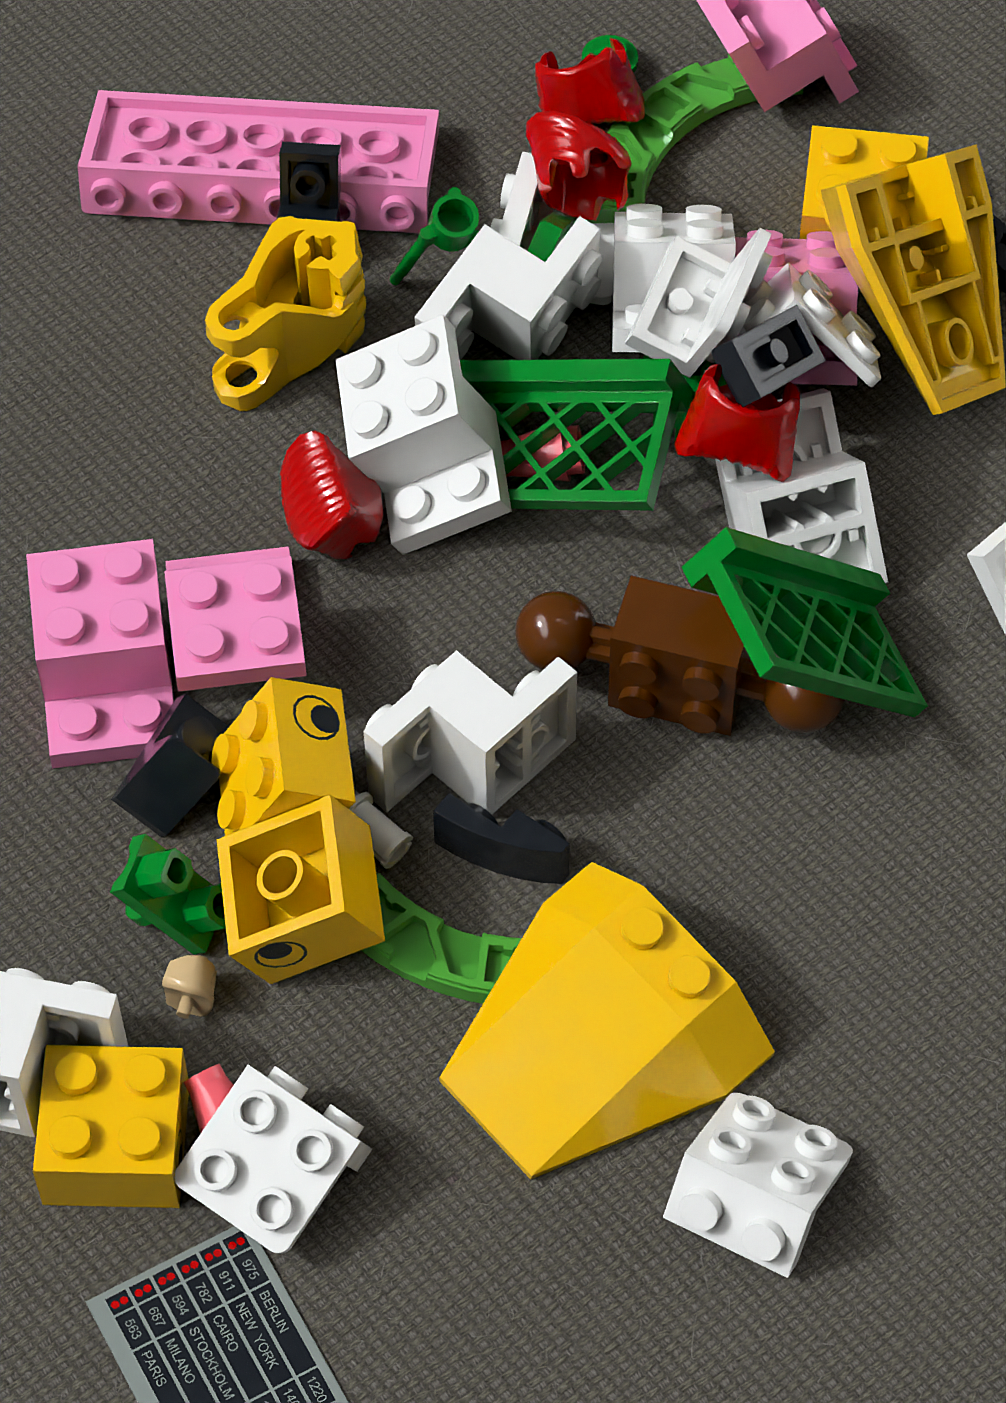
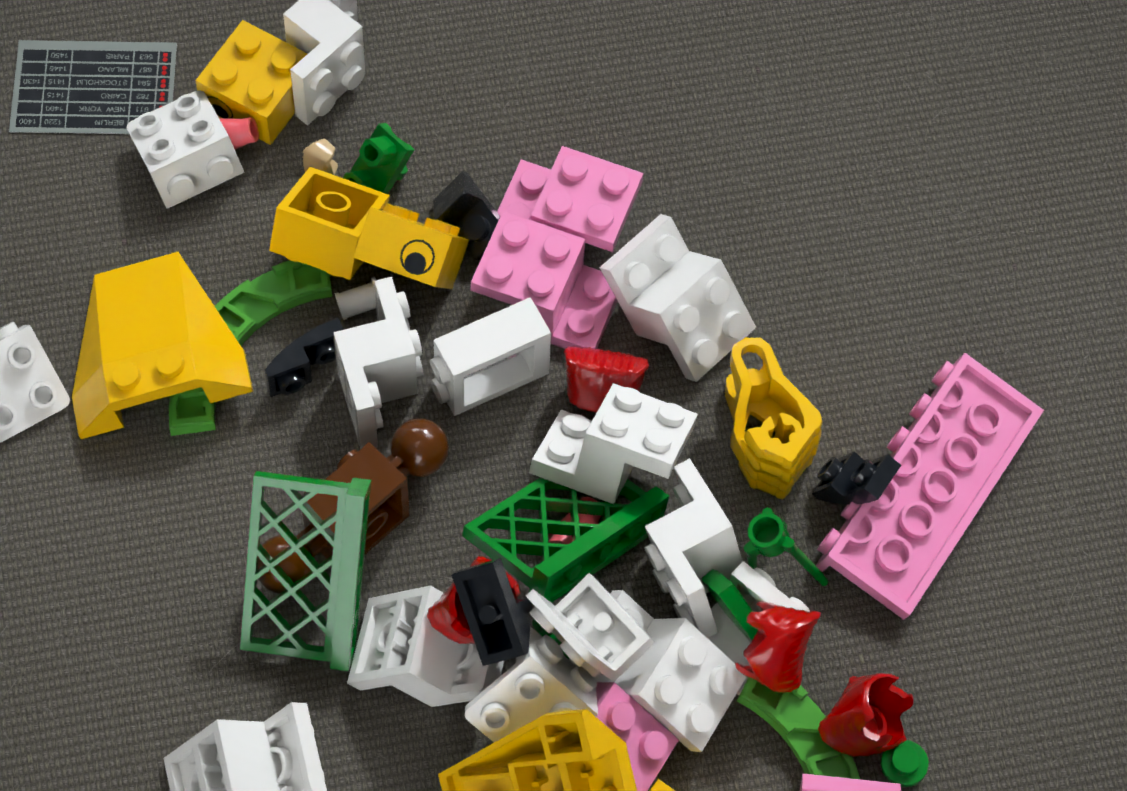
camera: 115 degrees right, 5 degrees up
(171, 469) = (678, 297): none -> white bracket
(377, 611) = (491, 357): none -> white window

